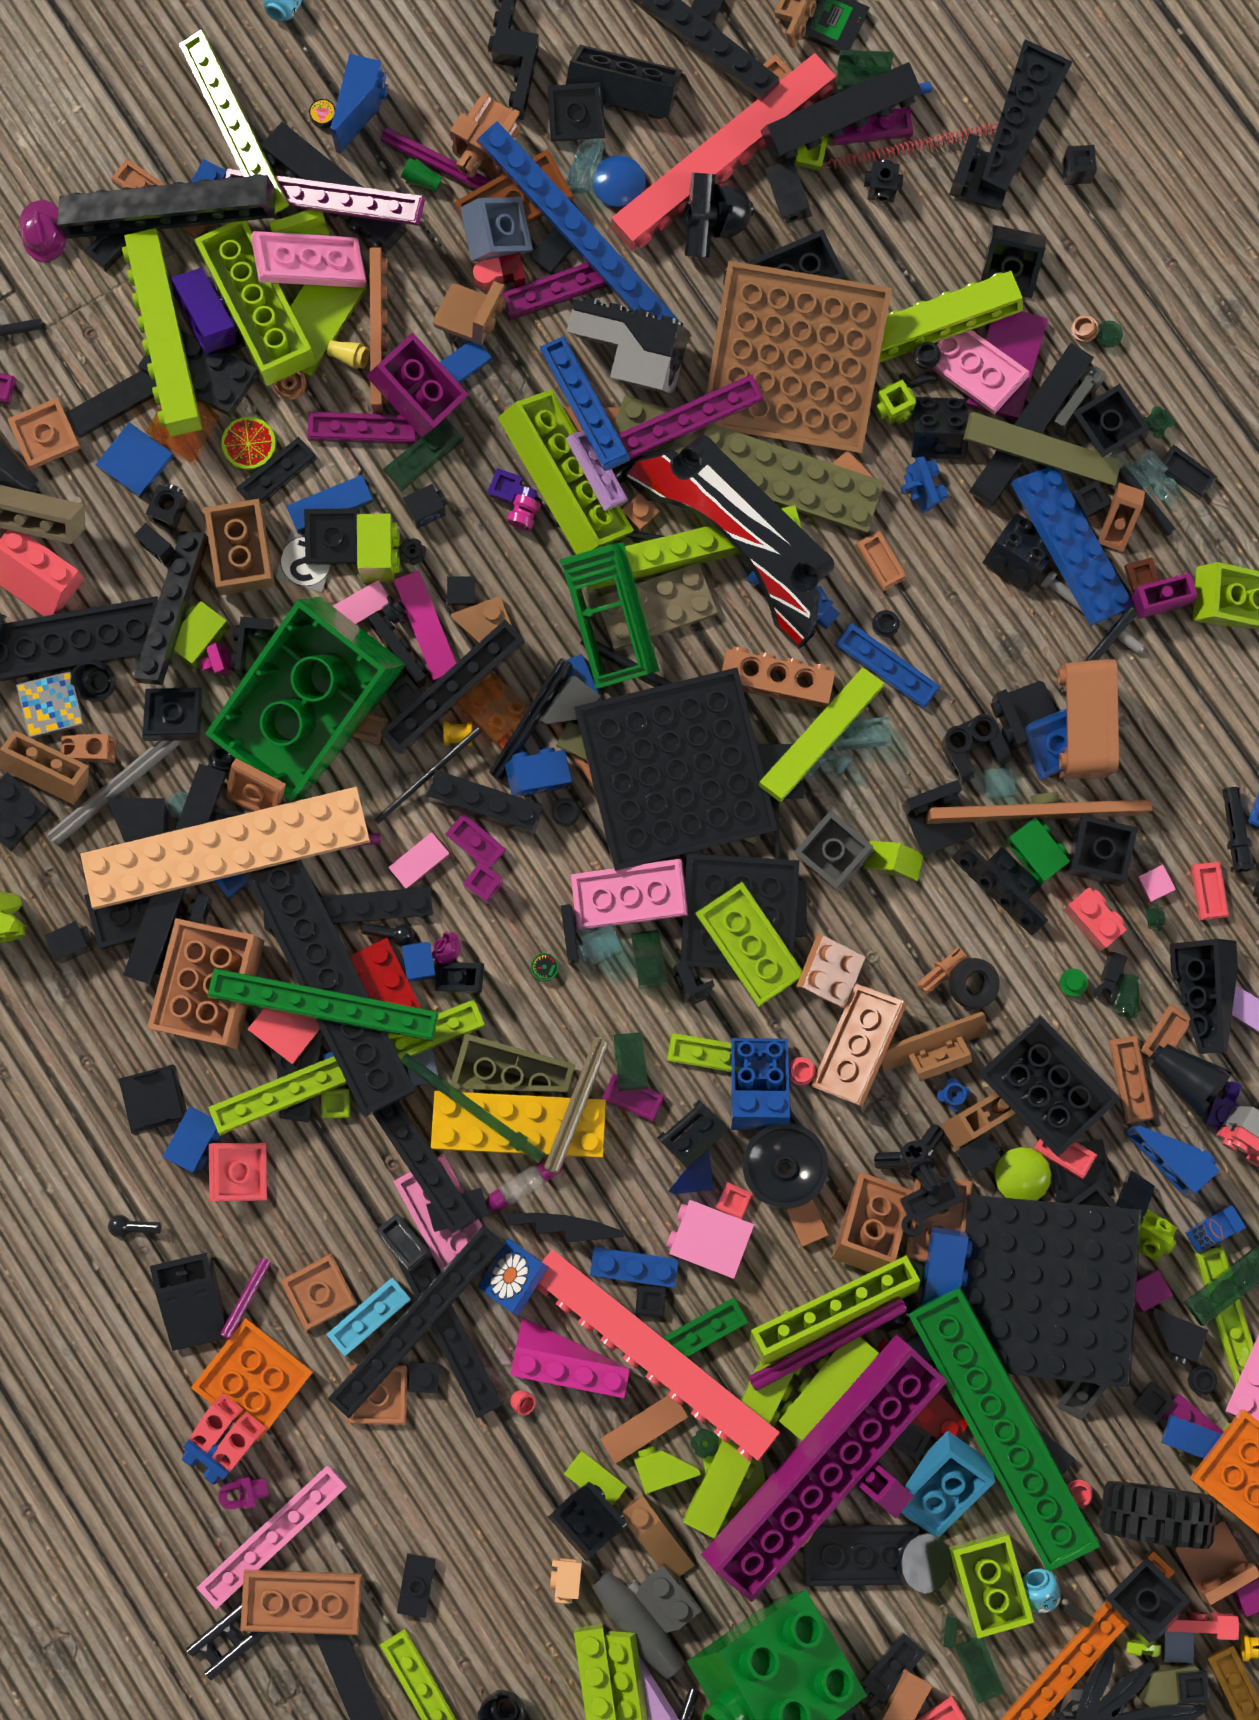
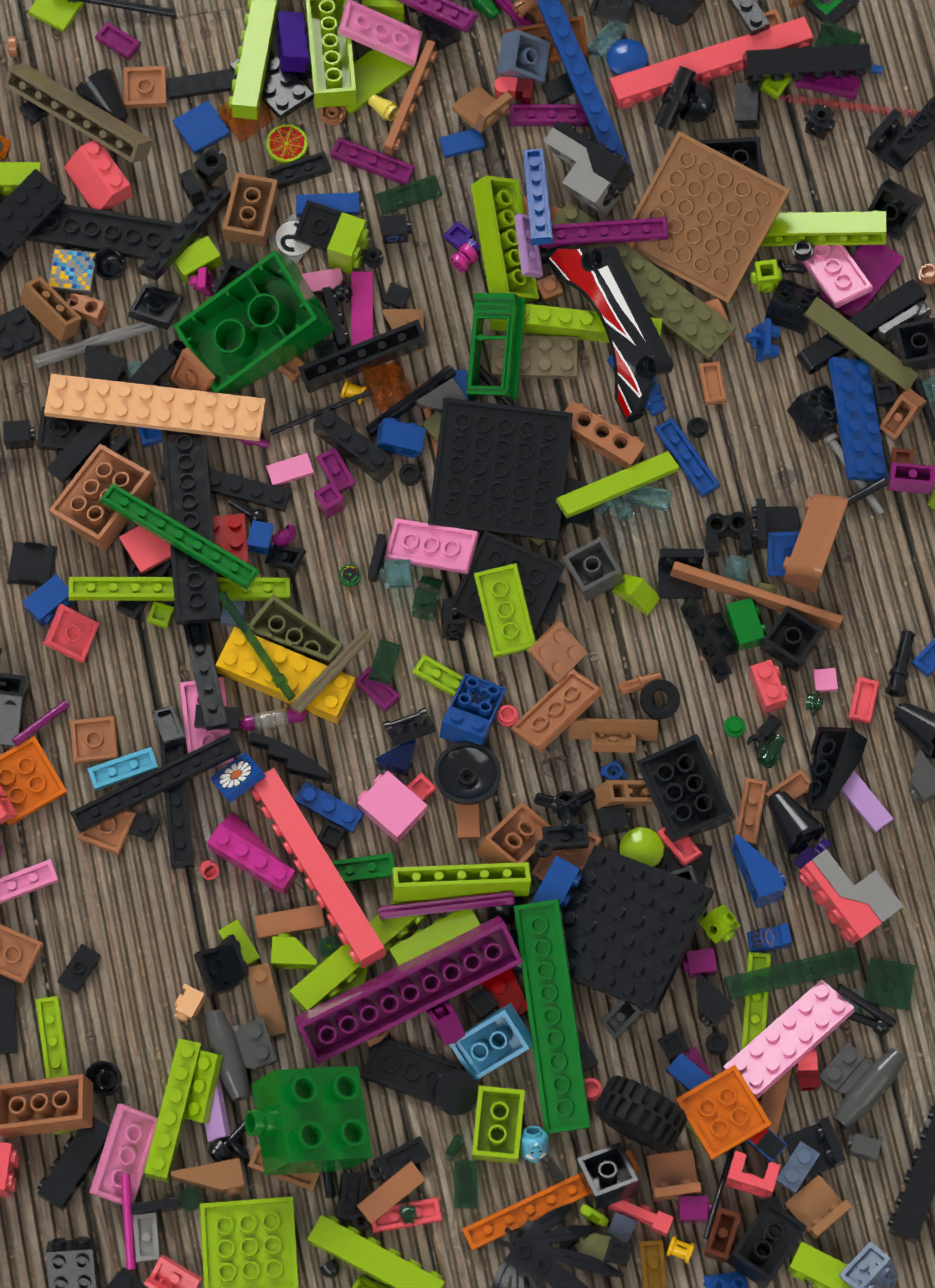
camera: 25 degrees right, 10 degrees down
(417, 385) = (422, 142): magenta brick -> none
(1135, 1193) = (722, 889): black tile -> none

